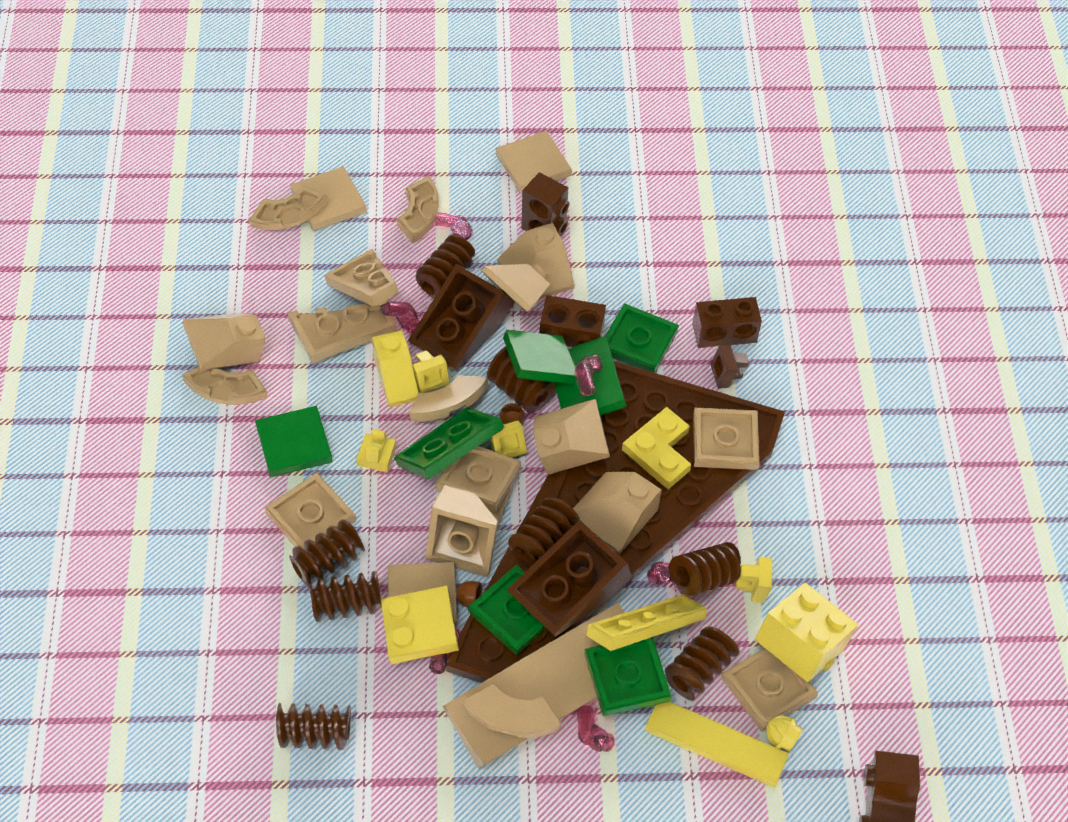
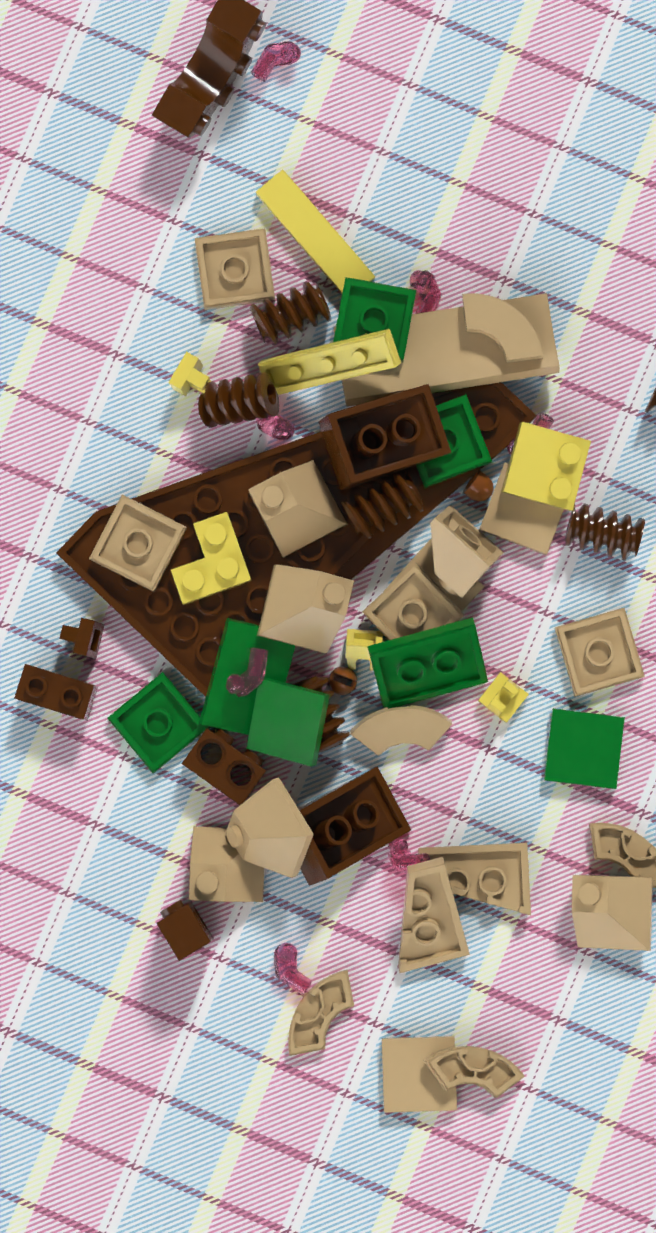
camera: 150 degrees left, 30 degrees up
(326, 551) = (605, 588): reddish brown piece -> none
(395, 368) = (443, 787): light yellow slope -> none
(430, 372) = (408, 767): light yellow tile -> none
(442, 261) = (332, 903): reddish brown piece -> none
(530, 156) = (155, 1028): tan tile -> none
(783, 732) = (249, 211): light yellow plate -> none
(806, 632) = (177, 293): light yellow brick -> none

